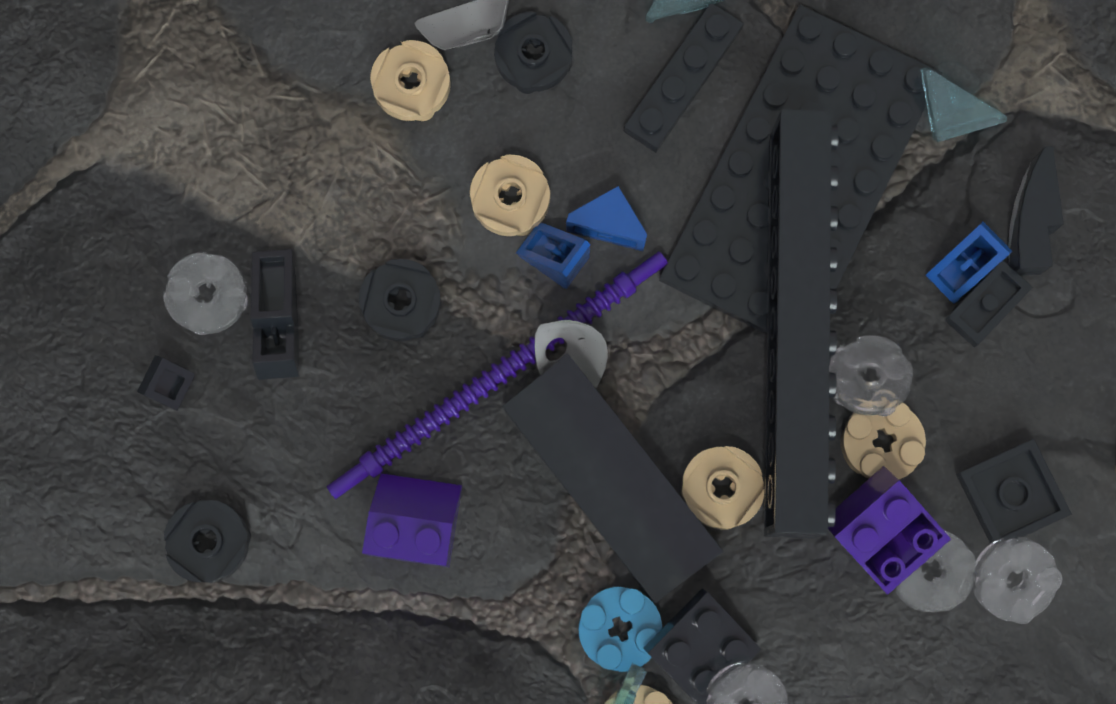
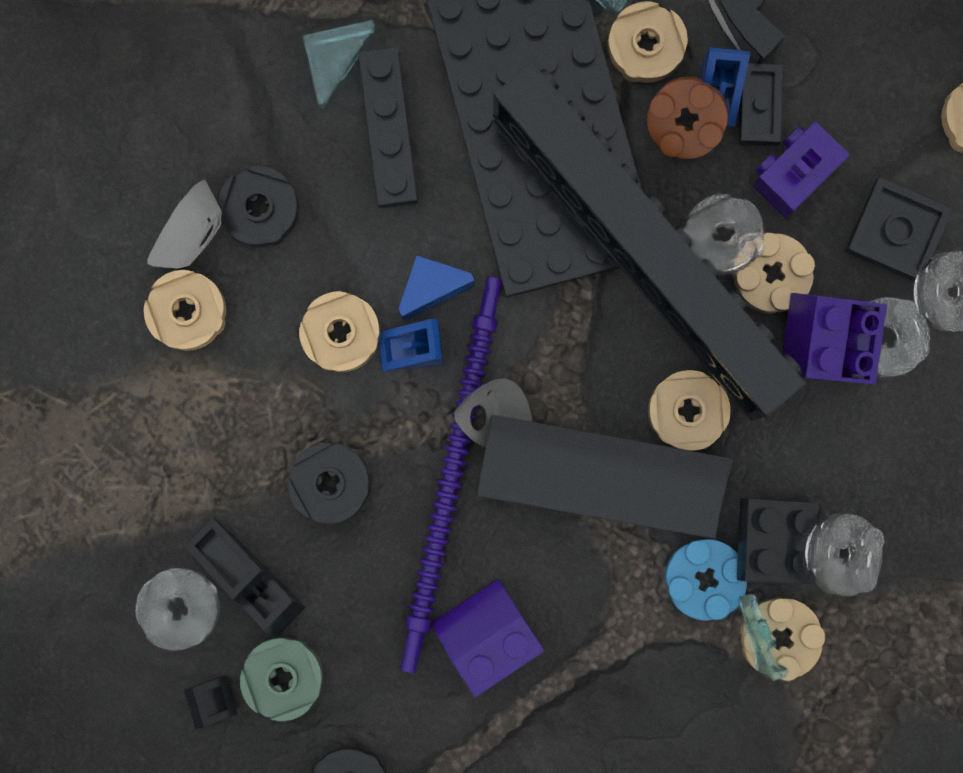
camera: 40 degrees left, 5 degrees up
(225, 392) = (271, 699): none -> sand green plate
(942, 254) = (699, 98): none -> dark orange plate
(960, 172) = (656, 22): none -> tan plate
(976, 378) = (800, 169): none -> dark purple brick

